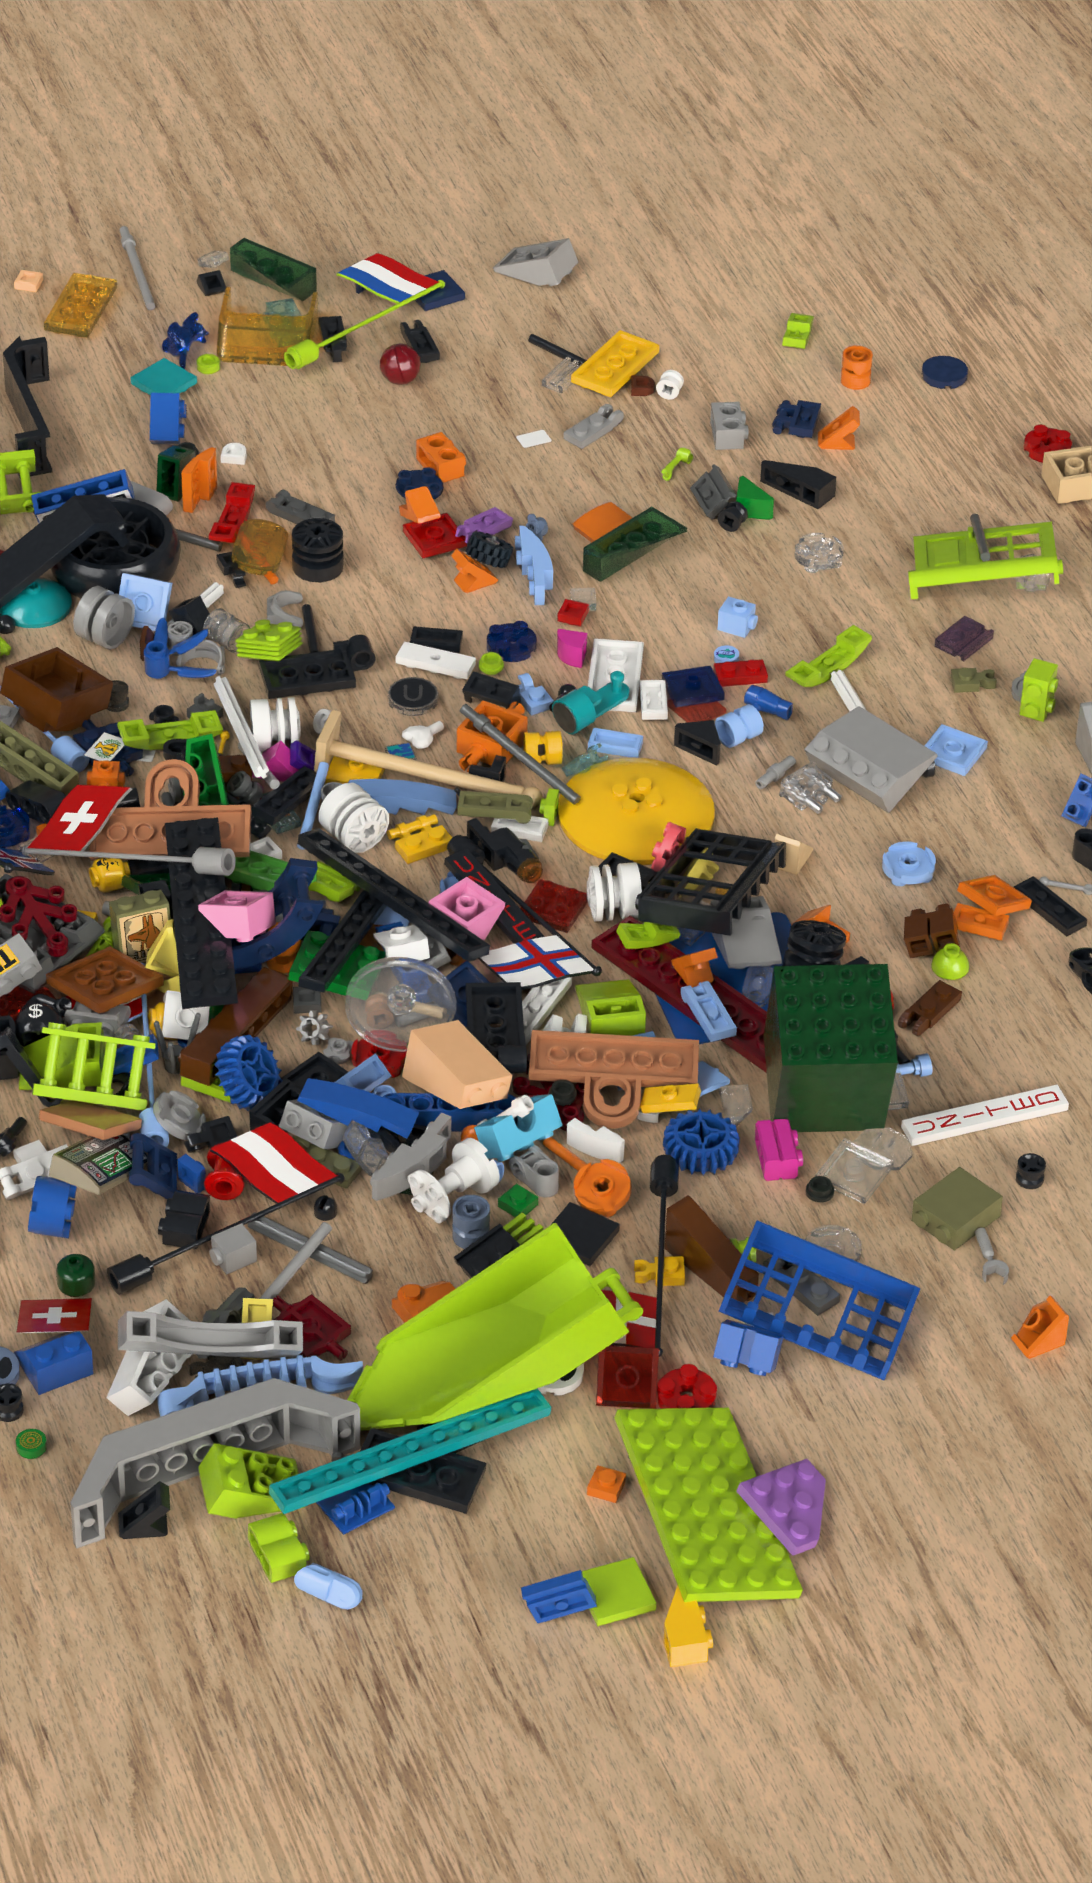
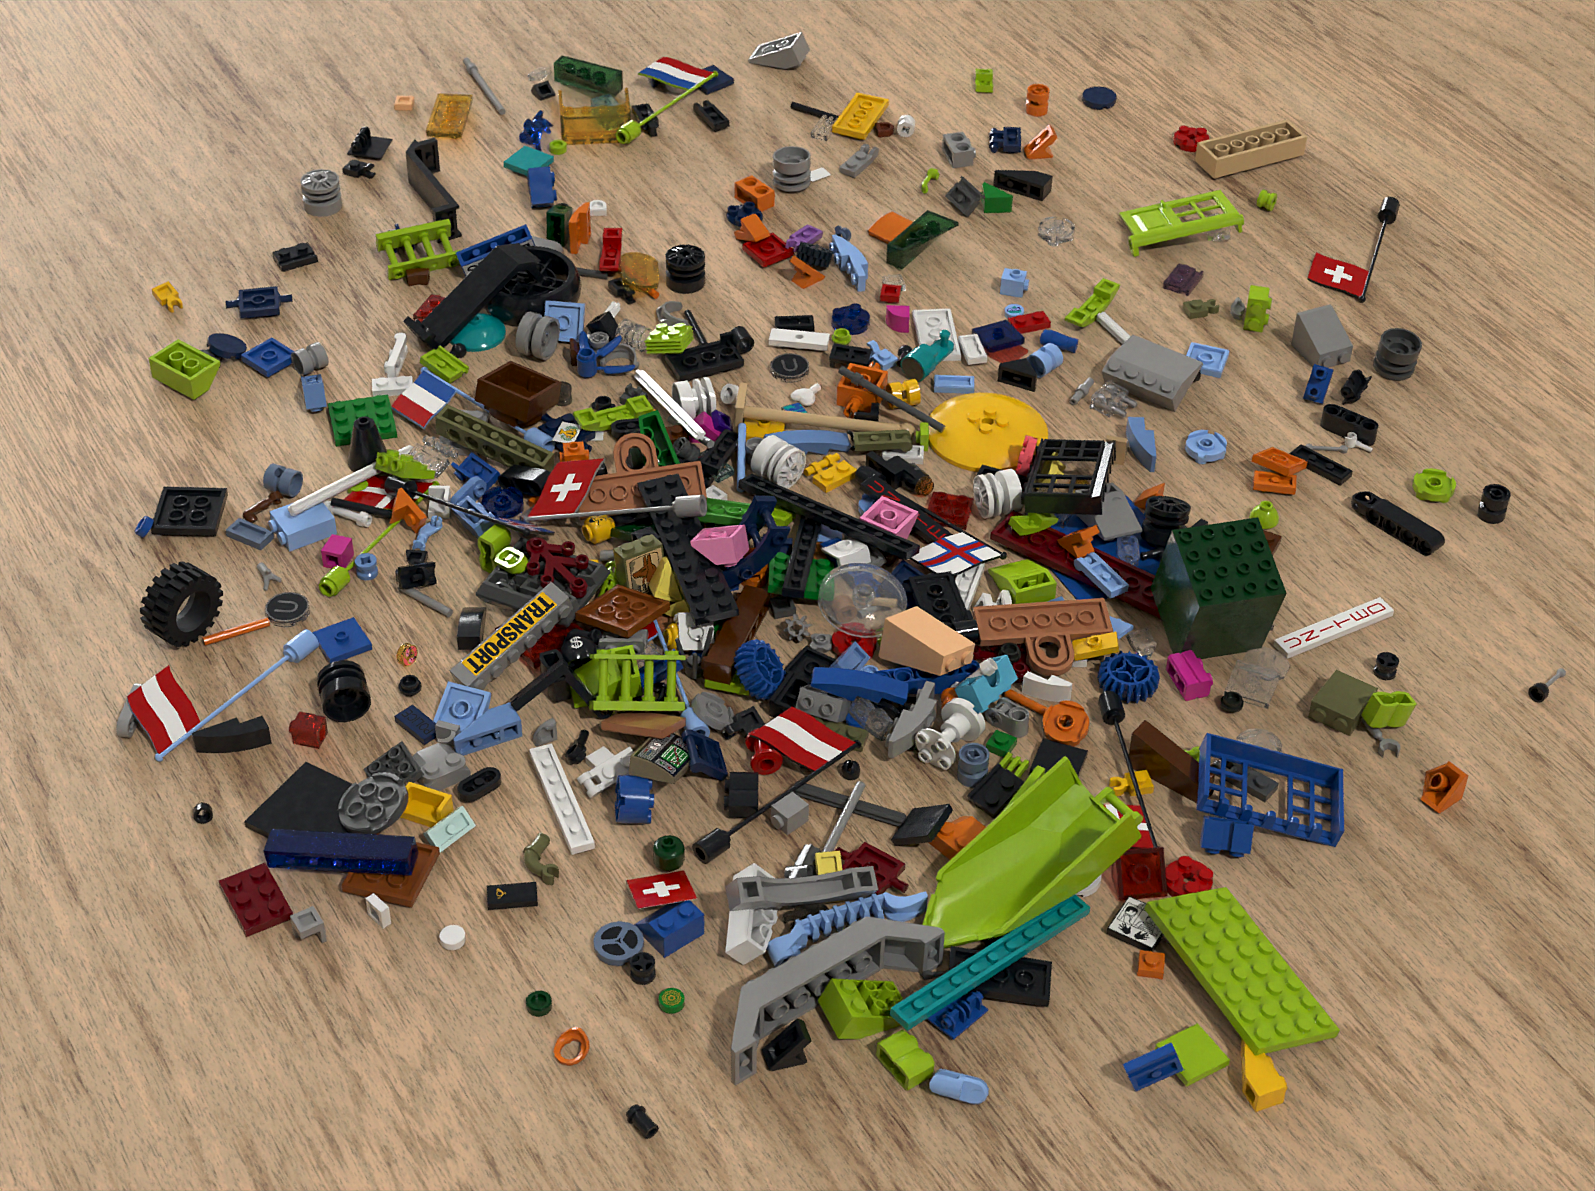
camera: 10 degrees left, 0 degrees up
(191, 1173) = (736, 756): blue plate -> none
(294, 509) = (654, 242): dark grey plate -> none
(385, 1284) = (922, 825): none -> black tile
(400, 364) = (703, 131): dark red piece -> none
(496, 429) = (791, 168): none -> light grey wheel
(582, 763) = (936, 401): clear light blue plate -> none
(600, 1438) = (1135, 926): none -> tile
(732, 516) = (984, 212): black wheel -> none
(788, 1503) = (1305, 959): medium lavender plate -> none
(827, 848) = (1141, 442): none -> medium blue slope
(924, 927) = (1236, 492): reddish brown hips -> none
(980, 537) = (1173, 206): dark grey bar -> none
(1006, 1224) = (1388, 709): none -> lime brick

